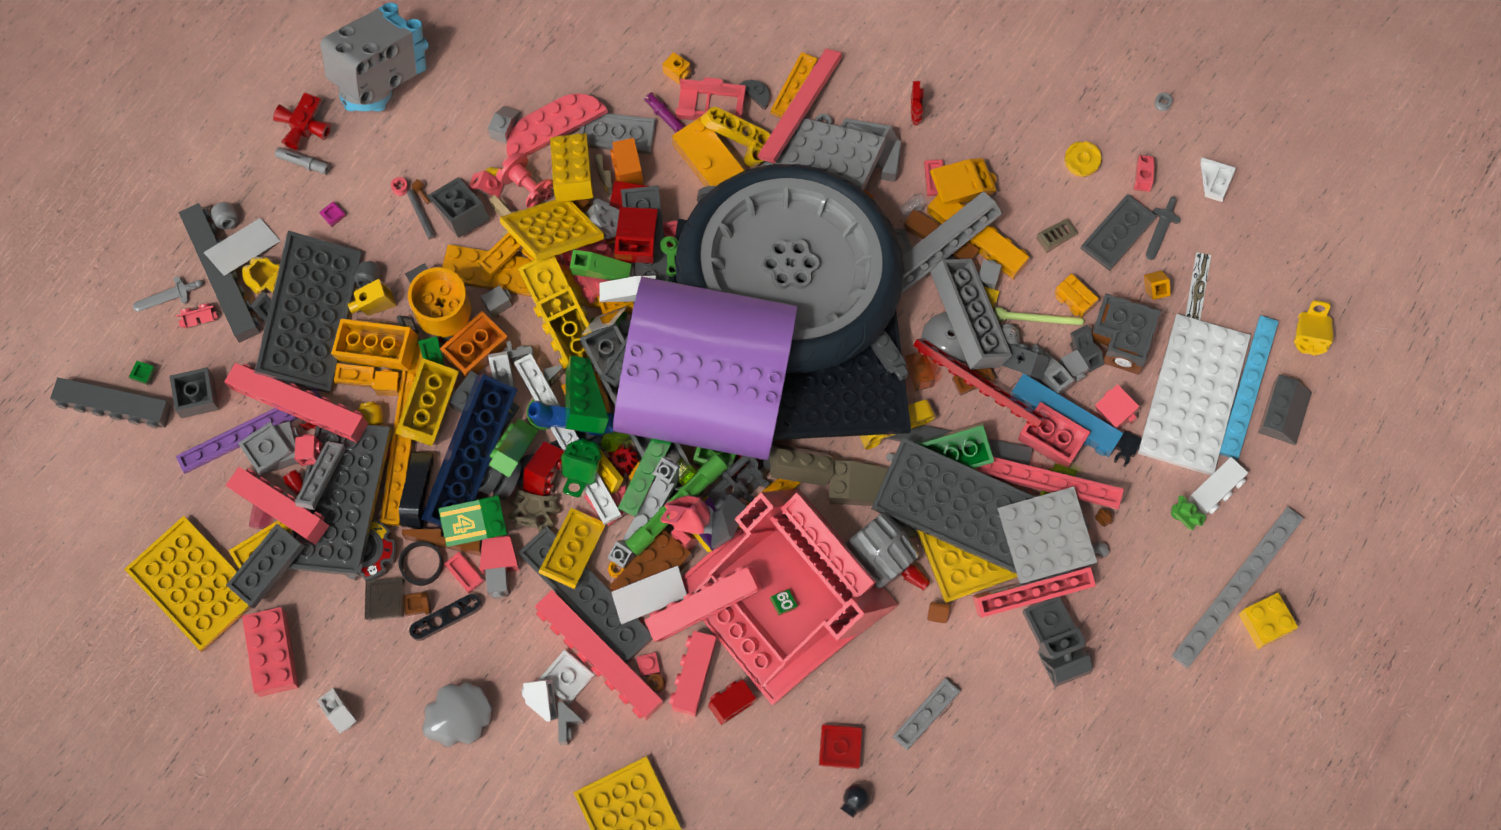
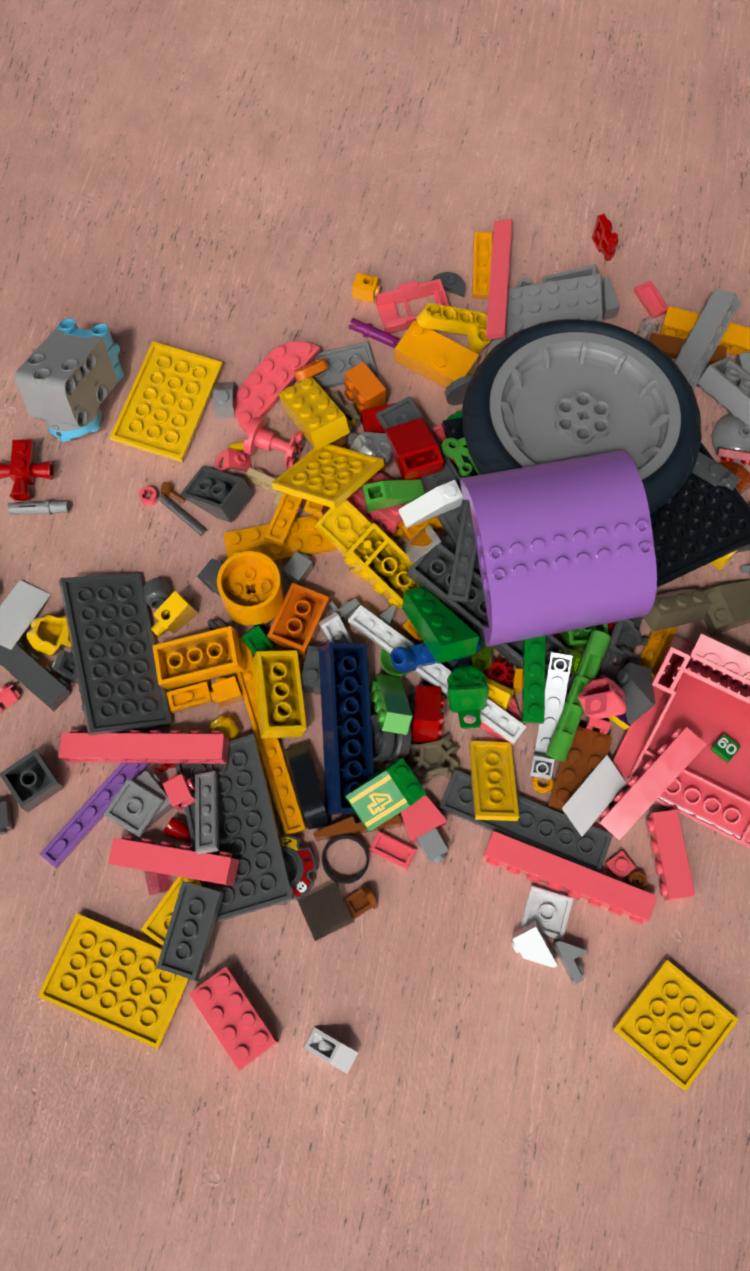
camera: 25 degrees left, 0 degrees up
(332, 214) = (92, 548): dark pink tile -> none
(443, 613) = (399, 906): black beam -> none
(453, 107) = (166, 401): none -> yellow plate
(457, 715) = (459, 1000): light grey piece -> none
(589, 126) = (311, 369): none -> orange beam
(731, 701) = (722, 868): red brick -> none
(963, 180) = (686, 289): light orange slope -> none

